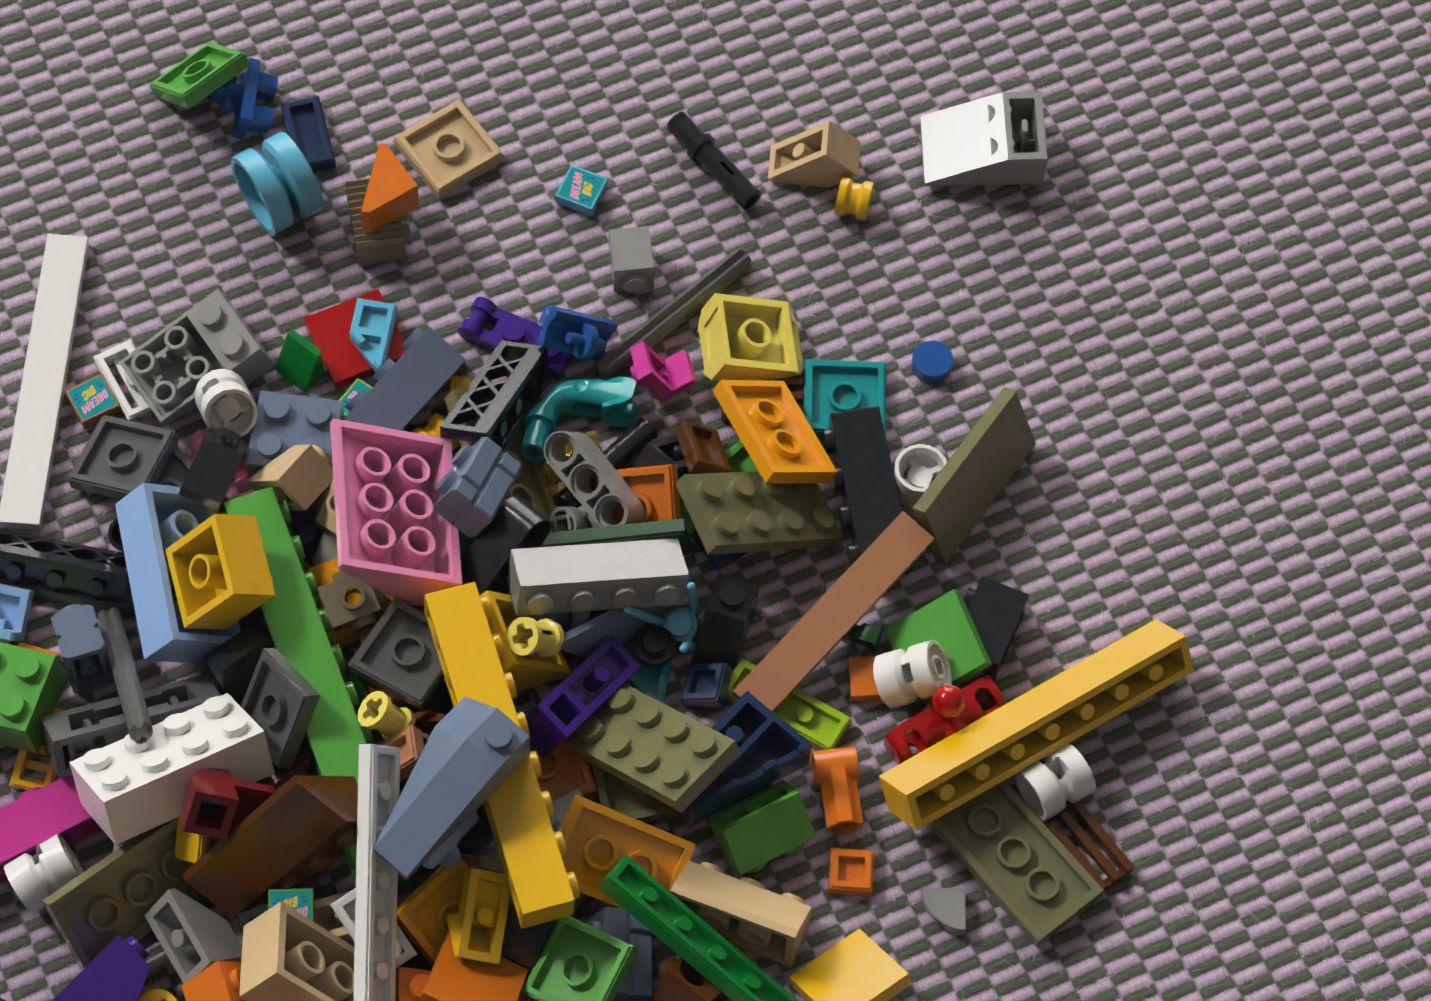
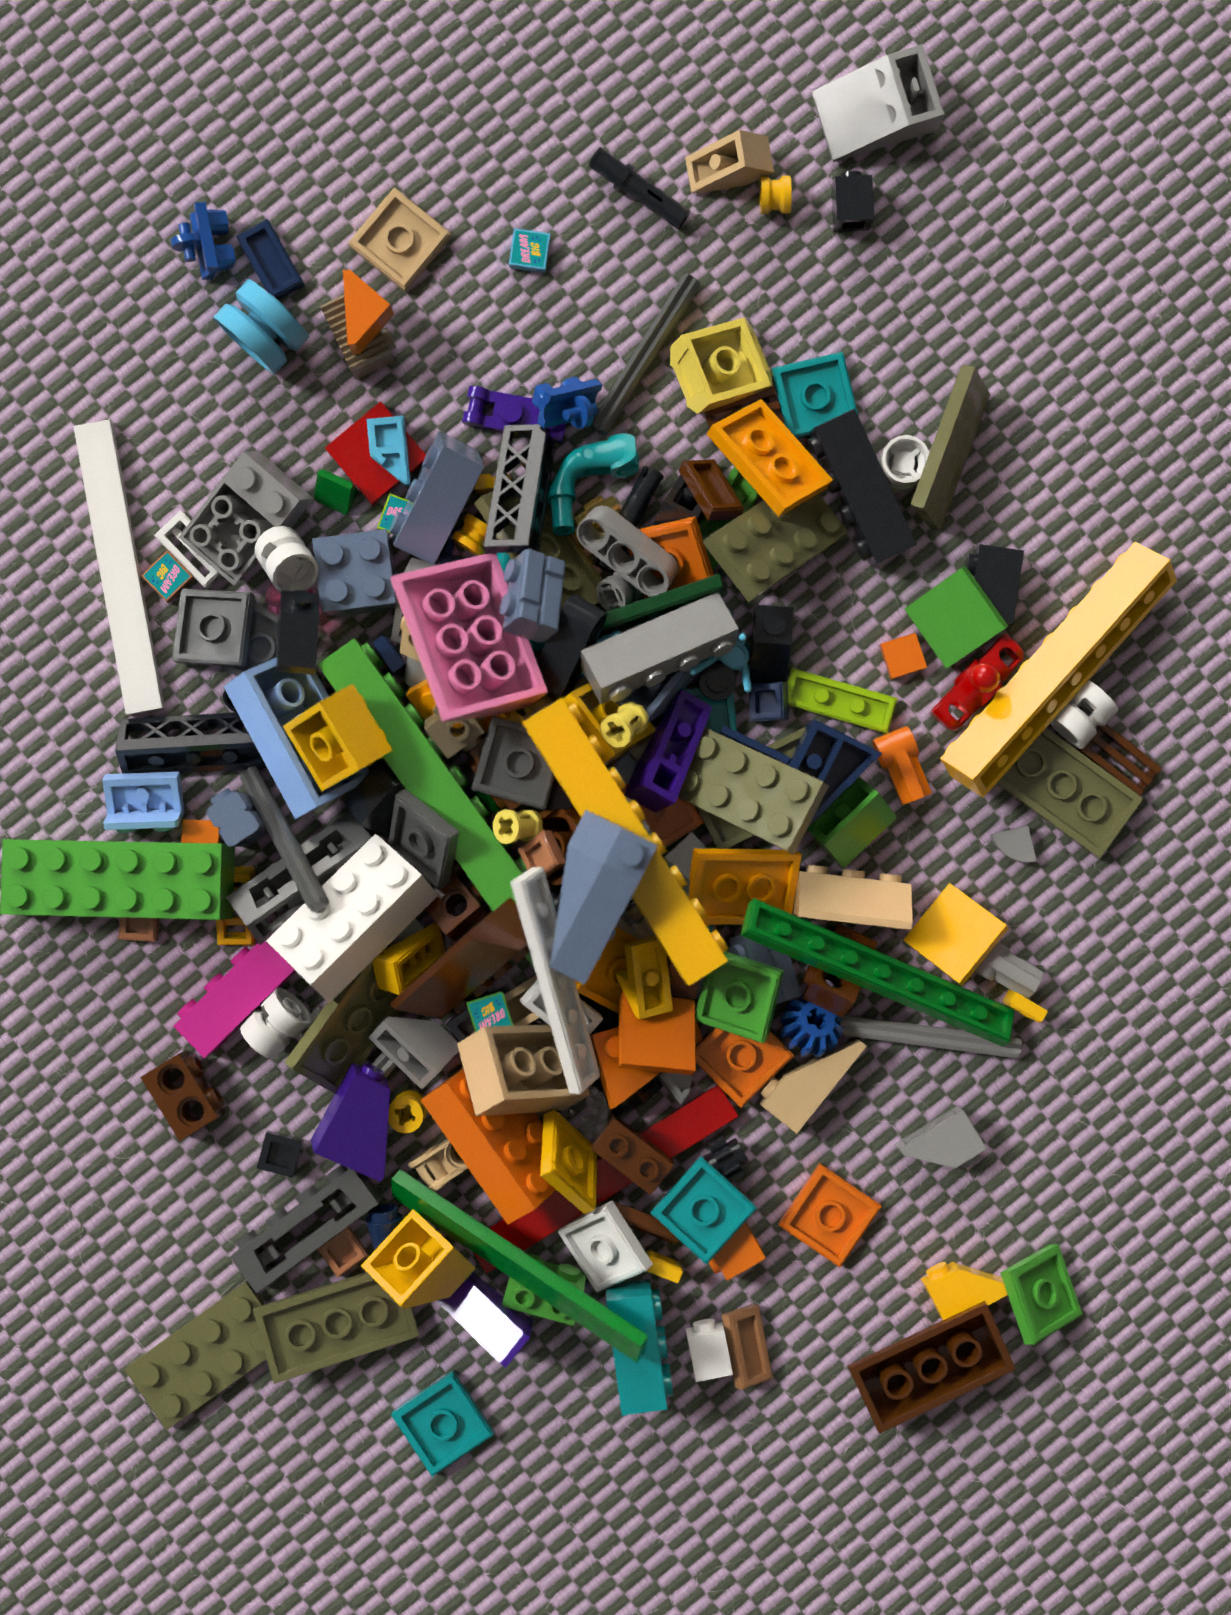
camera: 15 degrees left, 25 degrees up
(199, 75) = (155, 230): bright green tile -> none
(219, 802) = (404, 946): dark red brick -> none
(296, 476) = (370, 619): tan slope -> none
(631, 259) = (594, 312): light grey brick -> none
(659, 375) = (654, 418): dark pink bracket -> none
(836, 612) = (864, 615): nougat tile -> none
(851, 872) = (929, 833): orange tile -> none
(865, 635) = (886, 619): dark green tile -> none
(910, 674) = (943, 653): white wheel -> none
(932, 361) = (882, 338): blue tile -> none
(933, 225) = (852, 202): none -> black brick

